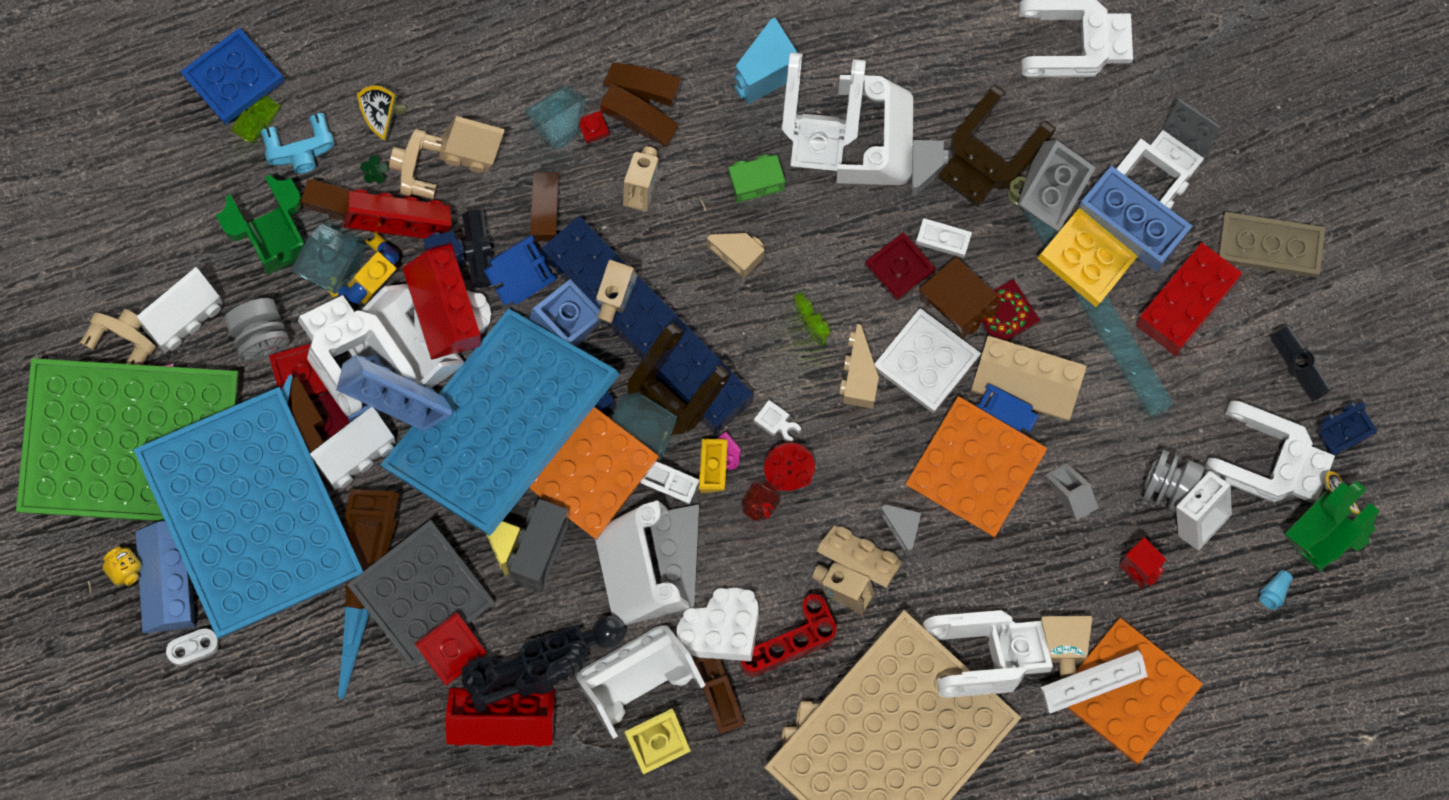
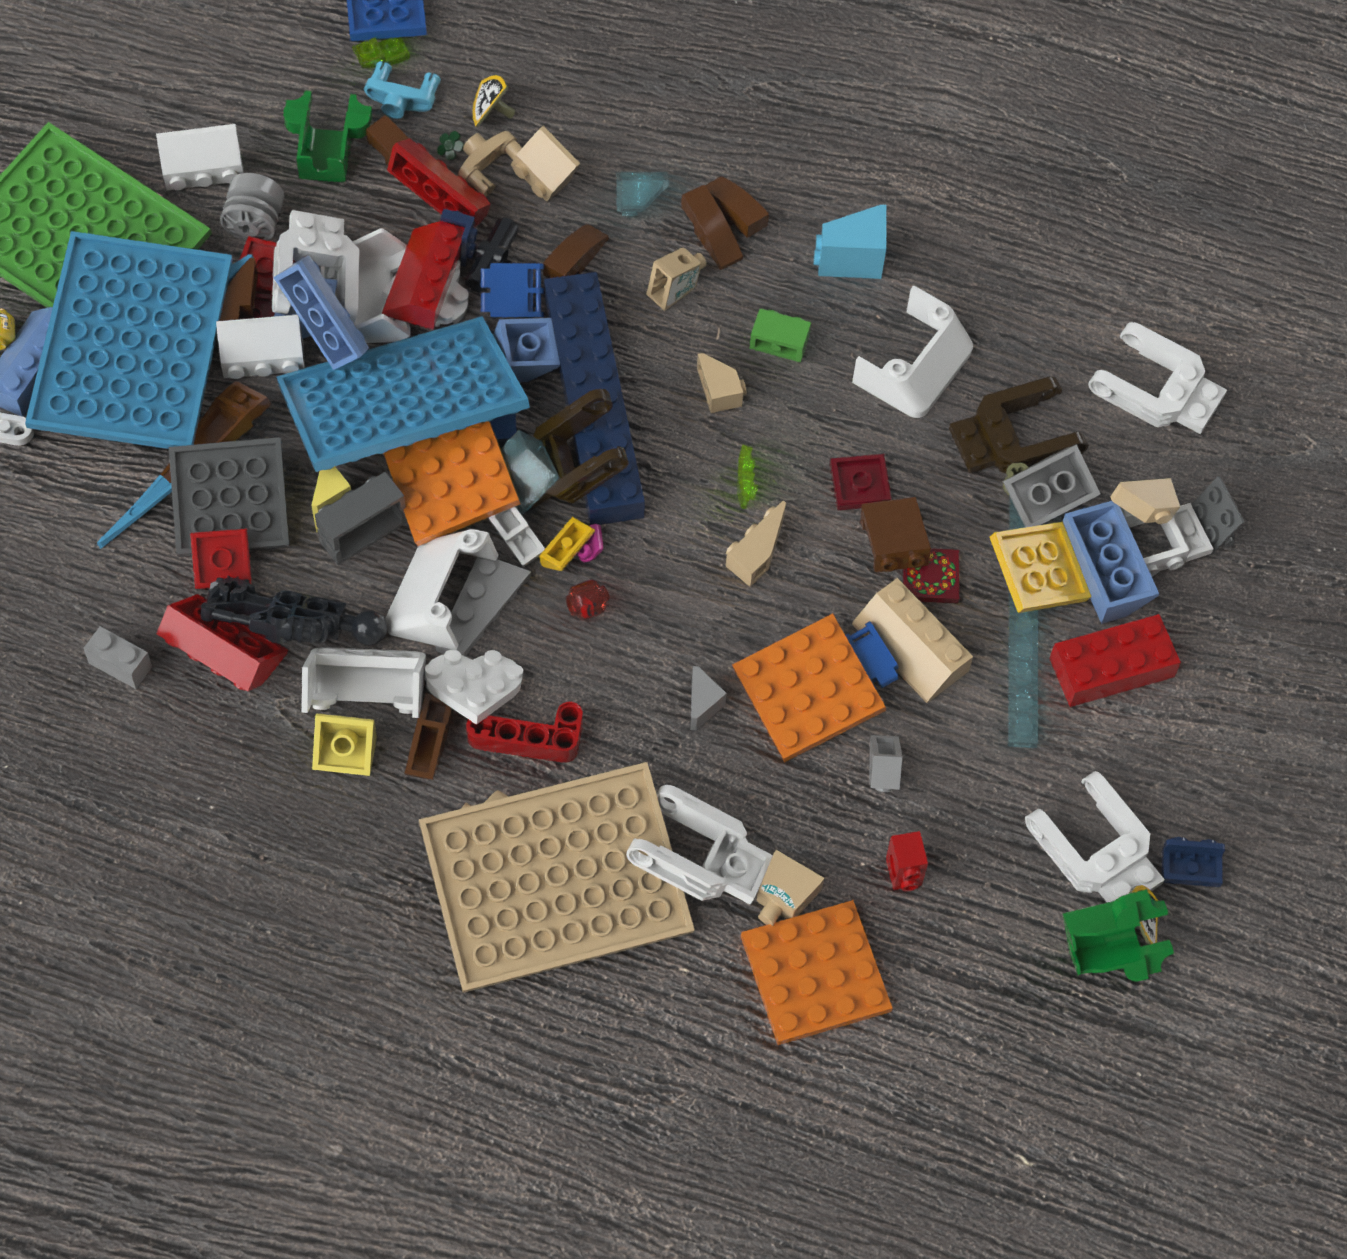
camera: 30 degrees right, 10 degrees down
(126, 327) = (146, 147): tan connector -> none
(329, 258) = (356, 187): clear light blue slope -> none
(372, 274) = (387, 215): torso -> none
(429, 782) = (117, 657): none -> light grey brick
(593, 127) = (665, 217): red plate -> none
(616, 279) = (580, 339): tan torso -> none
(774, 420) = (651, 542): white plate -> none
(777, 468) = (621, 581): red plate -> none
(819, 138) = (857, 329): white plate -> none
(845, 586) = (611, 709): tan torso -> none
(860, 555) = (643, 697): tan plate -> none
(927, 163) = (945, 407): light grey slope -> none
(927, 360) = (827, 572): white plate -> none
(943, 238) = (917, 479): white plate -> none
(1094, 681) = (784, 936): white plate -> none
(1138, 152) = (1148, 499): none -> tan slope
(1171, 481) = (986, 806): light grey wheel -> none
(1202, 517) = (983, 833): white window -> none
(1272, 244) = (1230, 660): dark tan plate -> none
(1275, 591) = (1022, 967): medium azure cone -> none
(1291, 350) = (1186, 794): black piece -> none

